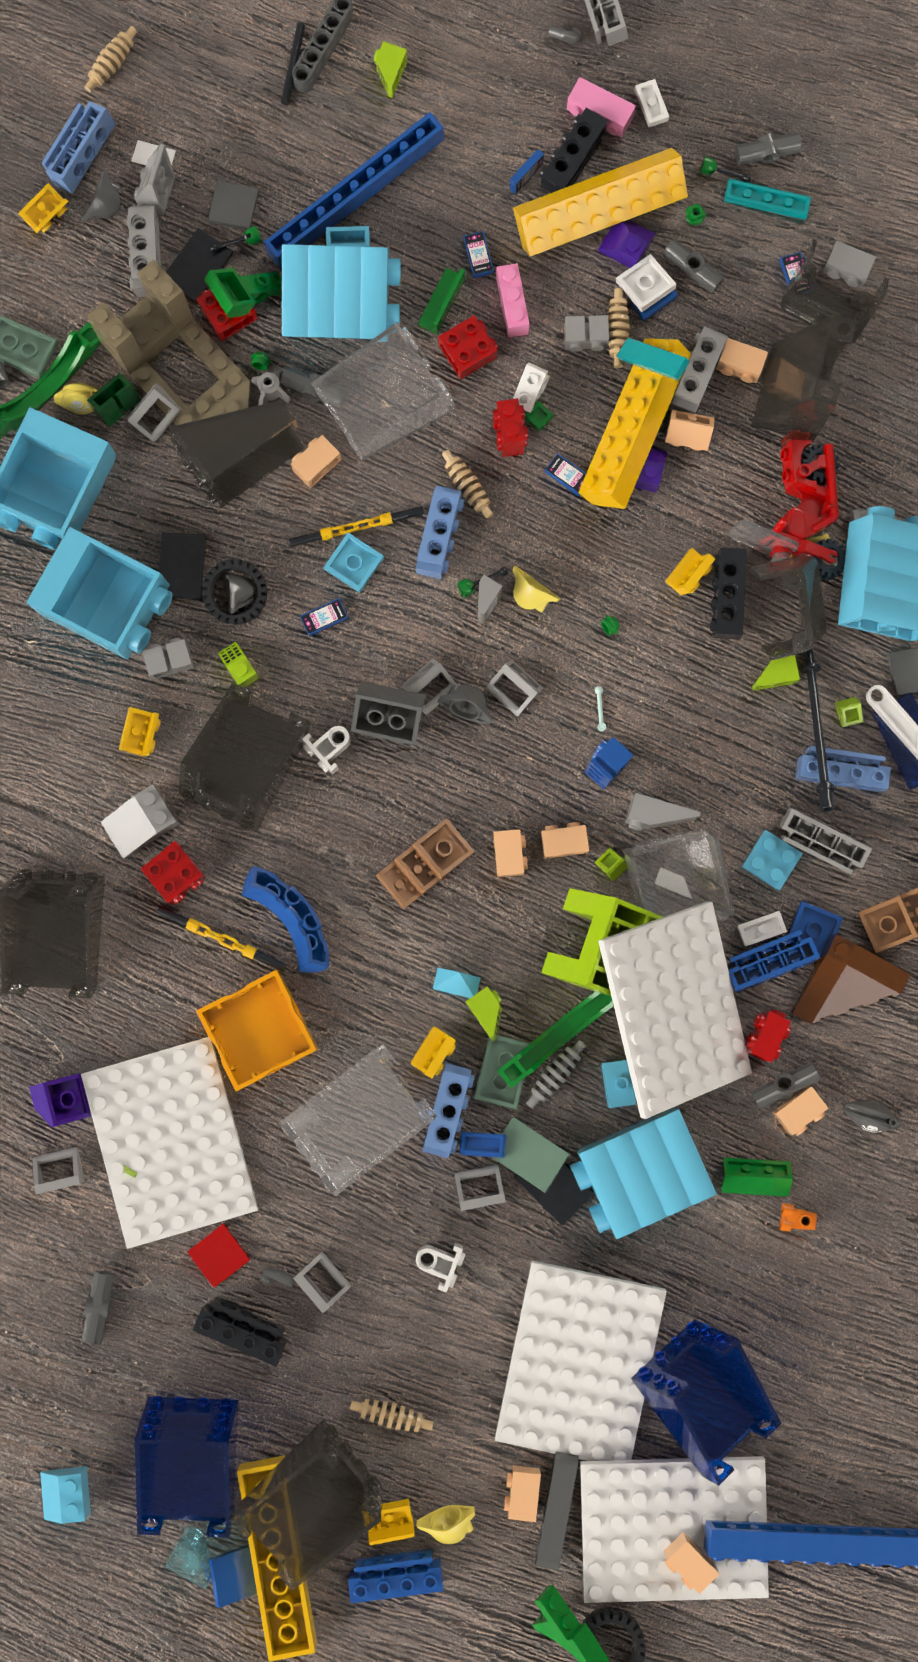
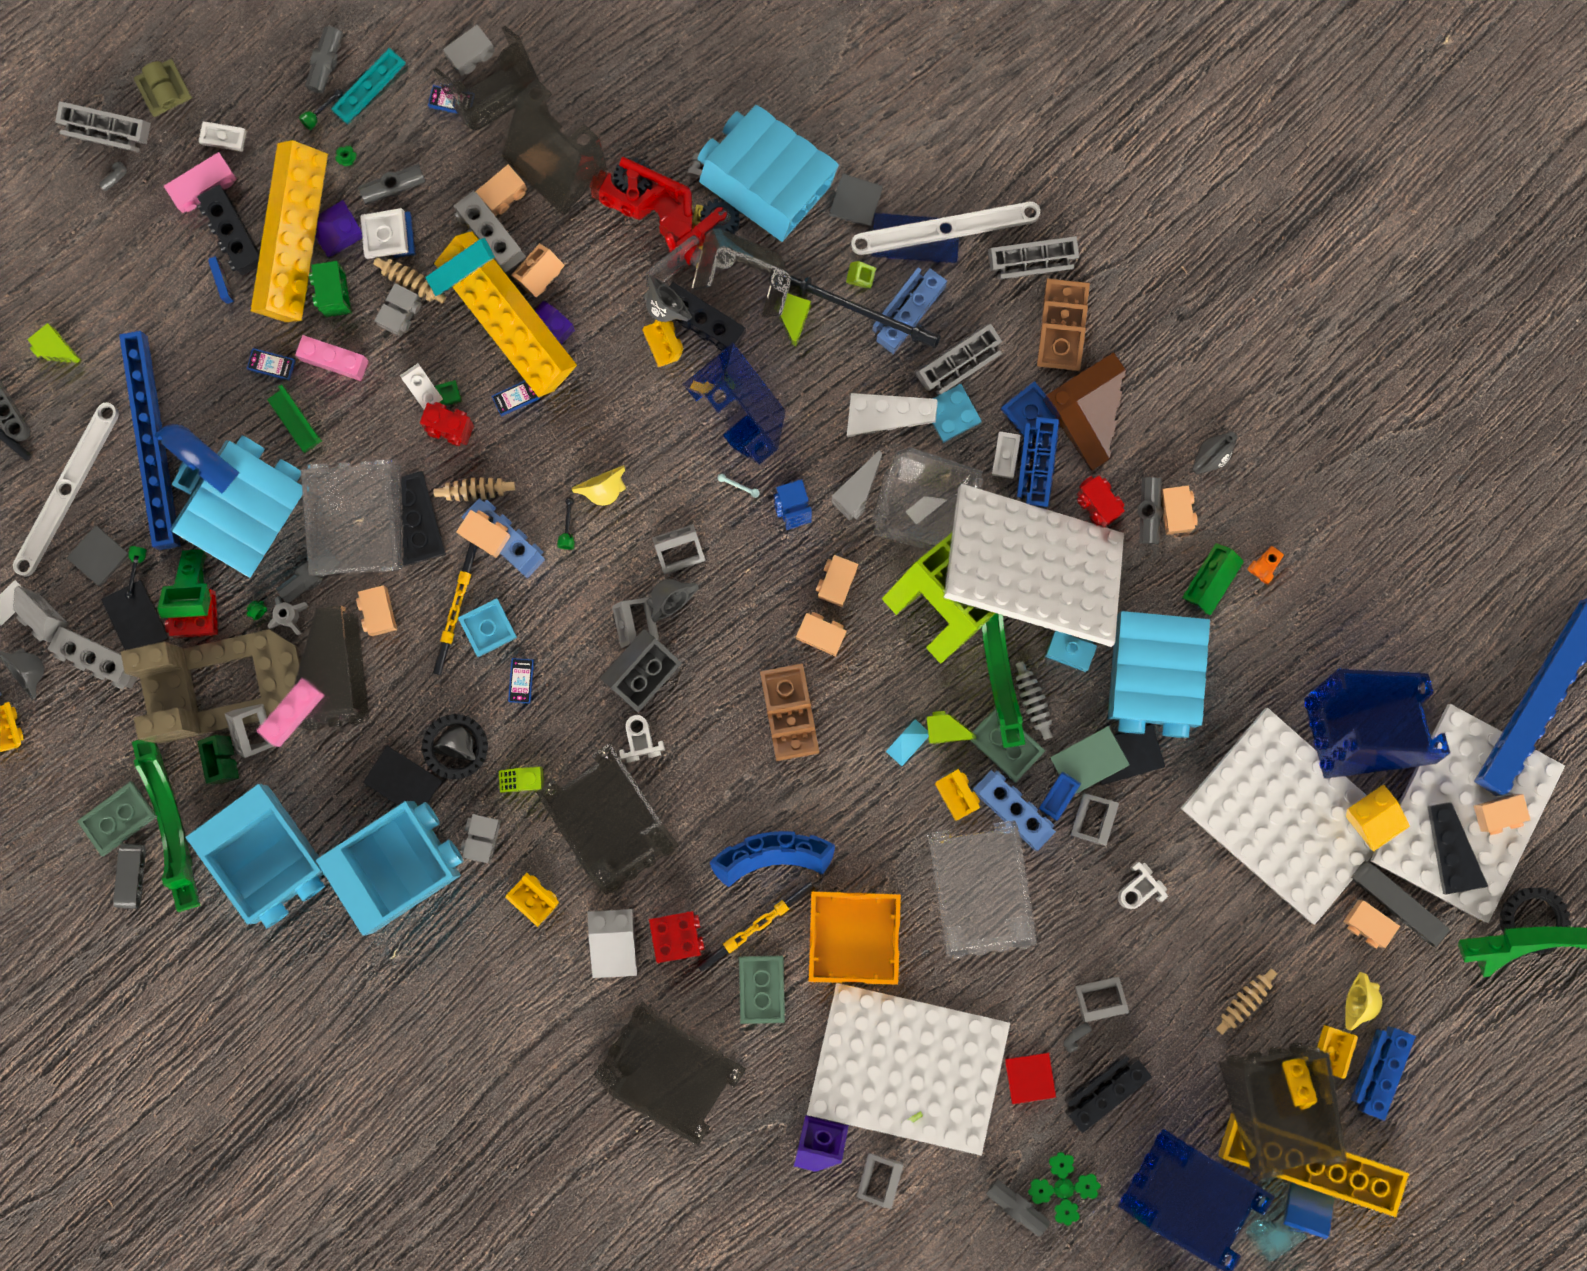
camera: 60 degrees left, 0 degrees up
(75, 397) = (194, 792): light yellow hat -> none
(137, 1339) = (1064, 1188): none -> green plant
(169, 974) = (761, 989): none -> sand green tile
(176, 427) = (290, 712): none -> bright pink brick
(259, 147) = (57, 503): none -> white beam
(341, 1506) = (1299, 1083): none -> yellow bracket
(359, 225) = (197, 455): none -> blue brick
(408, 458) = (420, 527): none -> black wing
(430, 510) = (484, 533): none -> light nougat brick
(468, 347) = (351, 420): red brick -> none
(489, 596) = (586, 528): light grey tile -> none
(571, 264) = (331, 289): none -> green brick
(610, 625) = (670, 435): green plate -> none
(611, 864) = (879, 551): lime slope -> none
(622, 1448) = (1377, 817): none -> yellow slope
(628, 1538) = (1455, 858): none -> black wing
(665, 29) = (162, 86): none -> olive plate
(690, 656) = (760, 430): none -> clear blue windscreen
(723, 551) = (663, 302): none -> dark grey hat
(735, 796) = (882, 412): none -> white wing

